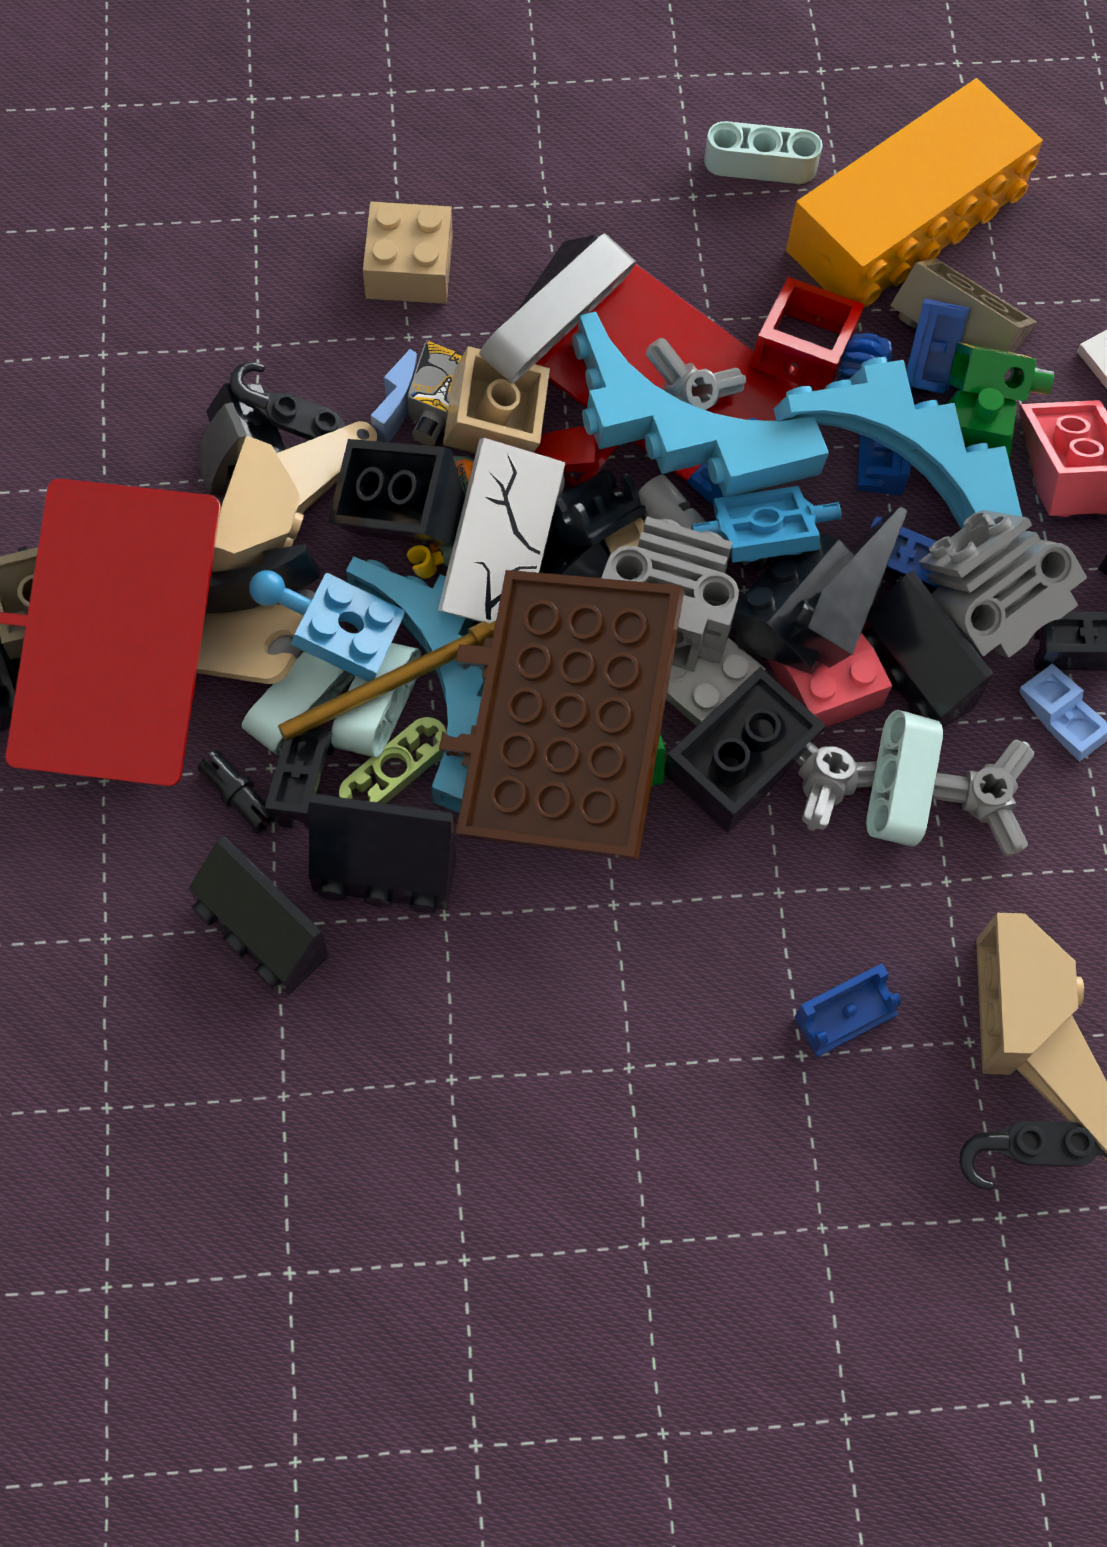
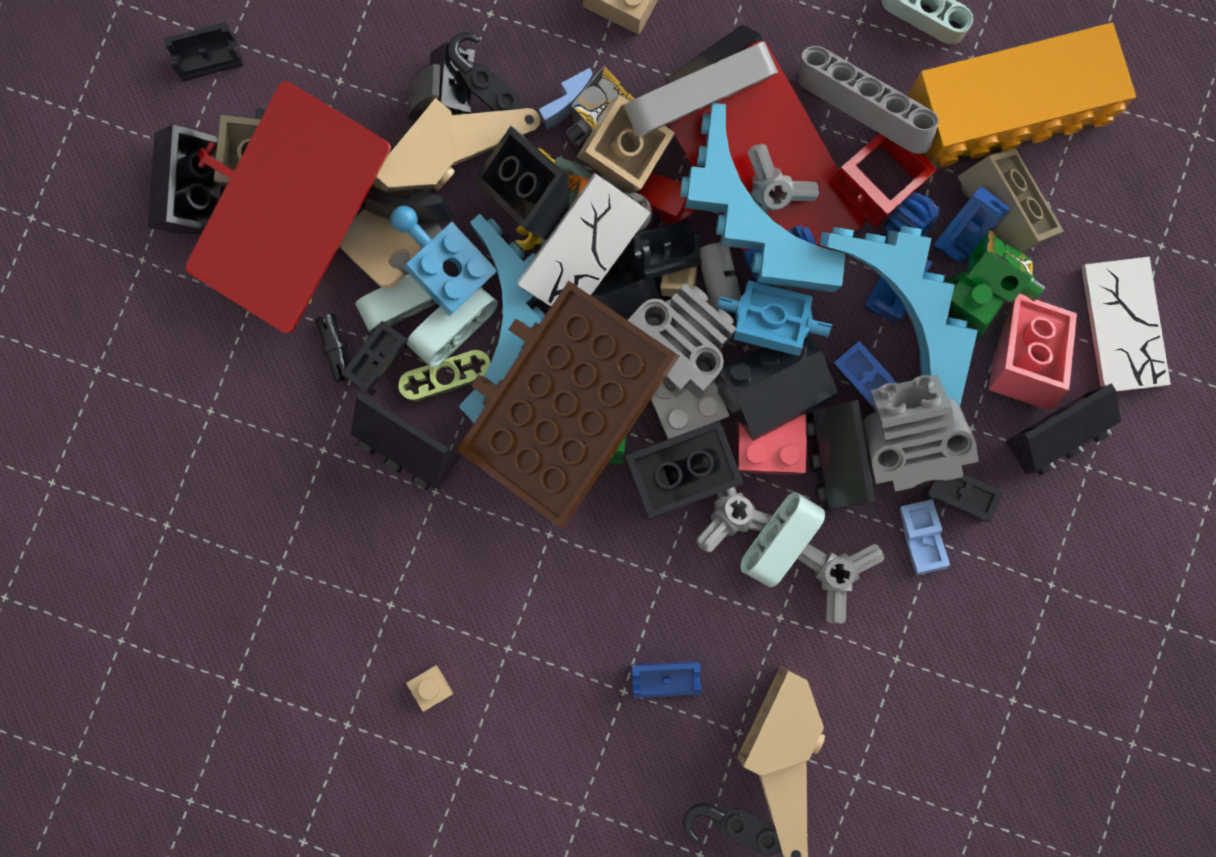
camera: 30 degrees right, 15 degrees up
(257, 918) = (306, 446): black slope -> none
(384, 683) = (532, 314): pearl gold bar -> none
(552, 1160) = (429, 688): none -> tan plate
(749, 259) = (868, 99): none -> light grey beam
(835, 612) = (790, 404): black slope -> none

